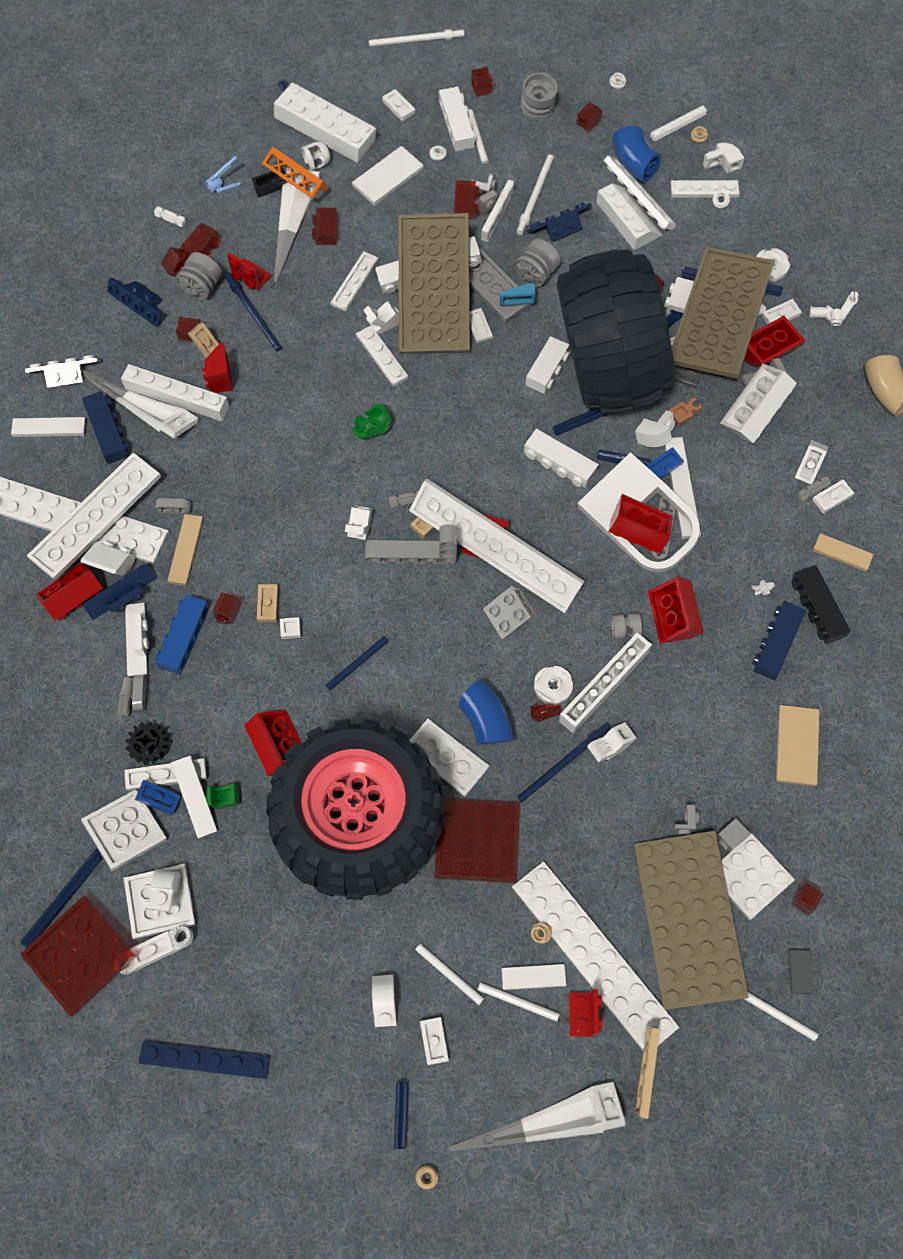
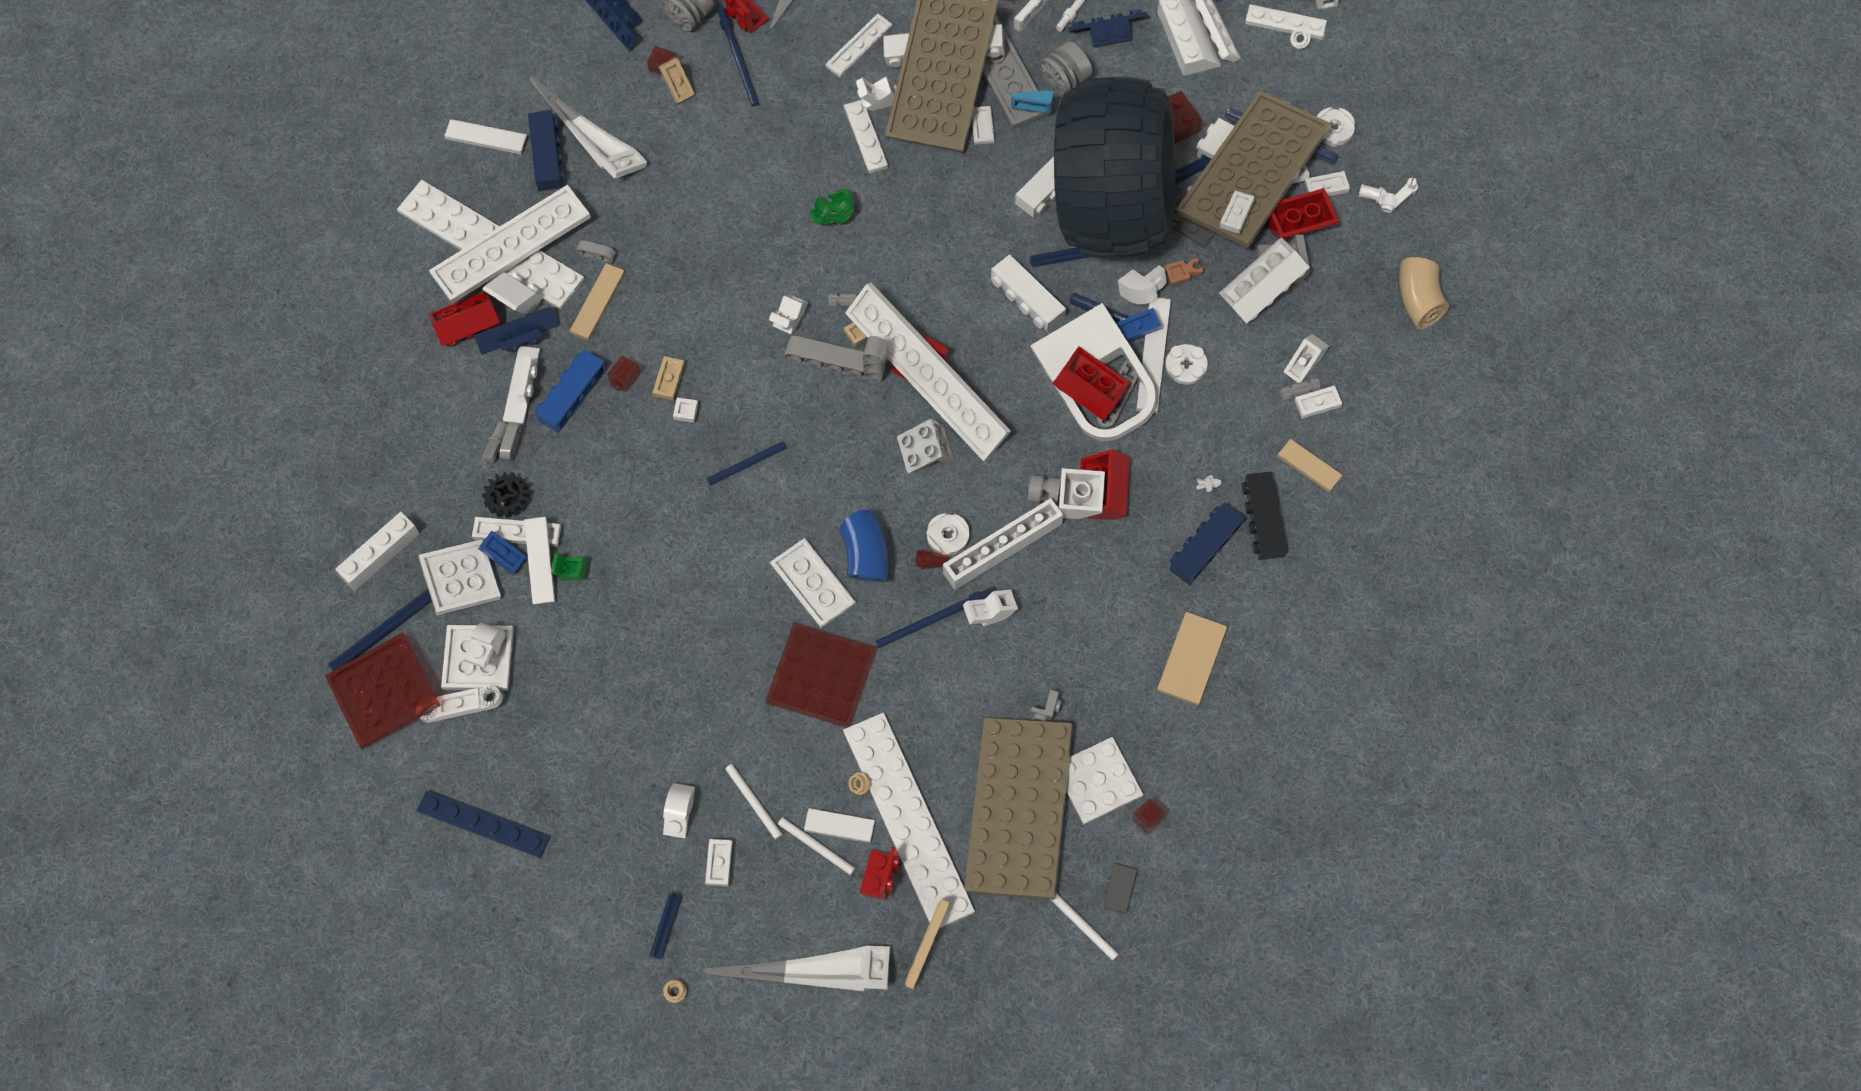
camera: 15 degrees right, 0 degrees up
(41, 824) = (377, 551): none -> white brick
(63, 373) = (516, 81): white bracket -> none
(175, 392) = (629, 129): white brick -> none
(217, 370) = (681, 114): red slope -> none
(272, 736) = (639, 524): red slope -> none
(377, 852) = (691, 563): black wheel -> none
(661, 621) = (1081, 493): none -> white slope
(716, 480) = (1186, 352): none -> white plate
(722, 350) = (1237, 212): none -> white plate
(732, 836) = (1089, 733): light grey brick -> none

